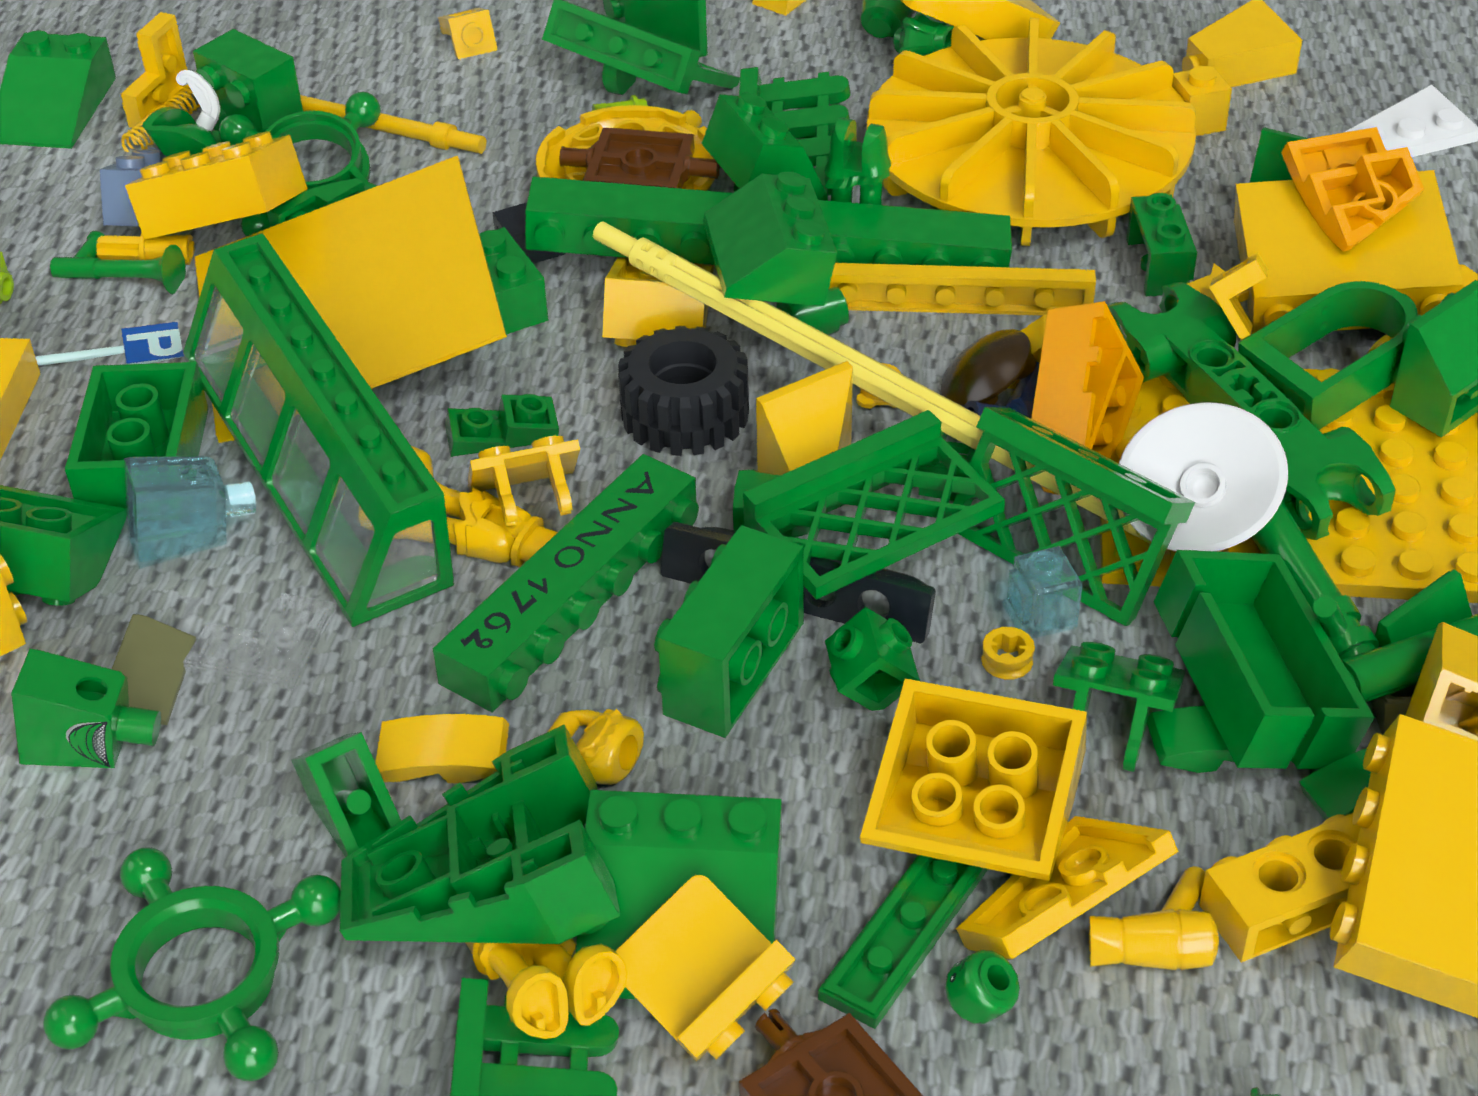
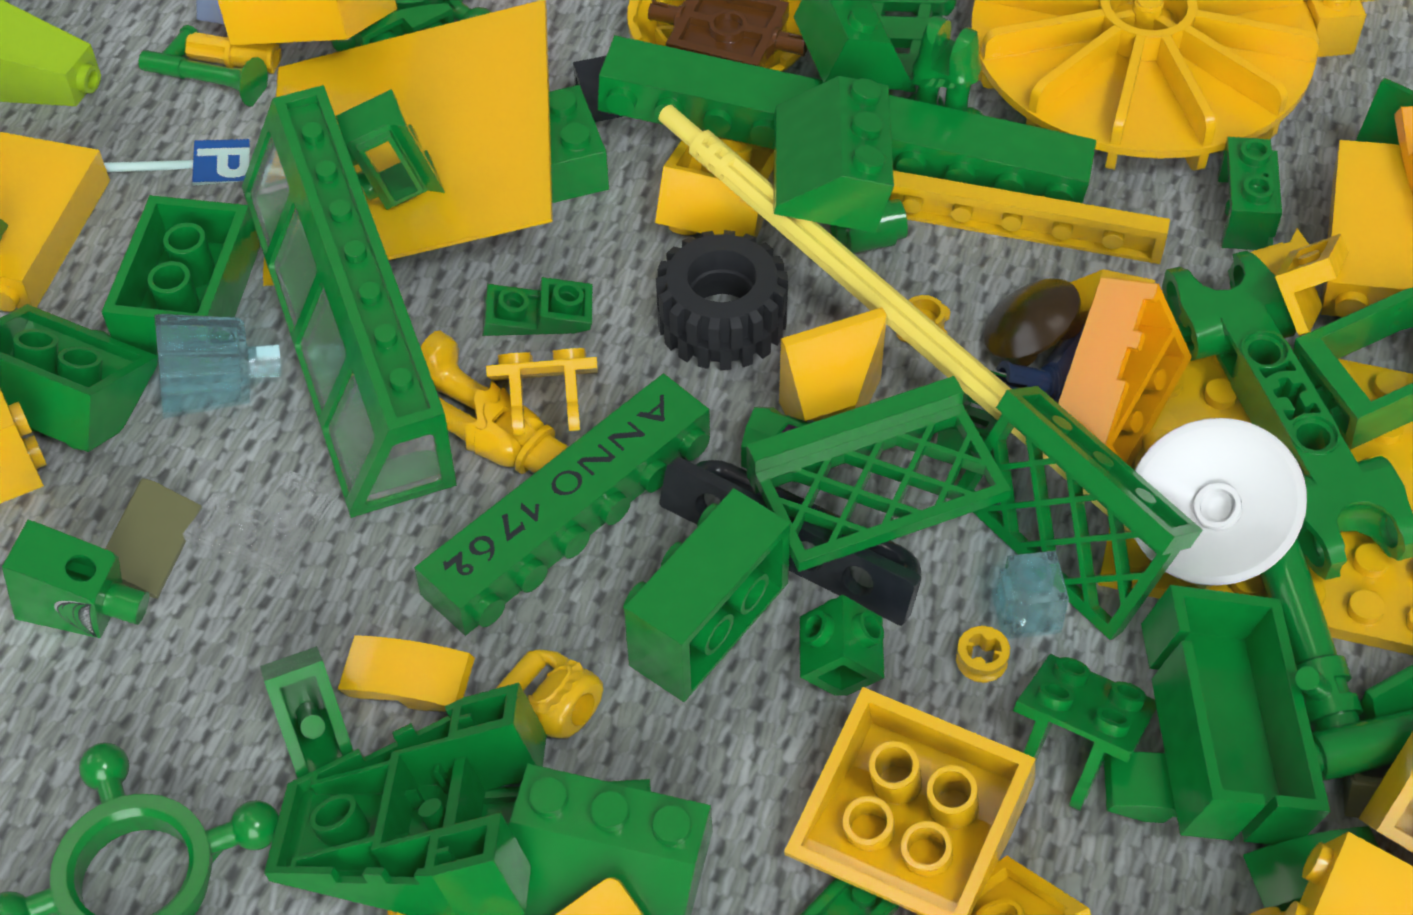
camera: 10 degrees right, 10 degrees up
(328, 259) = (375, 124): none -> green window

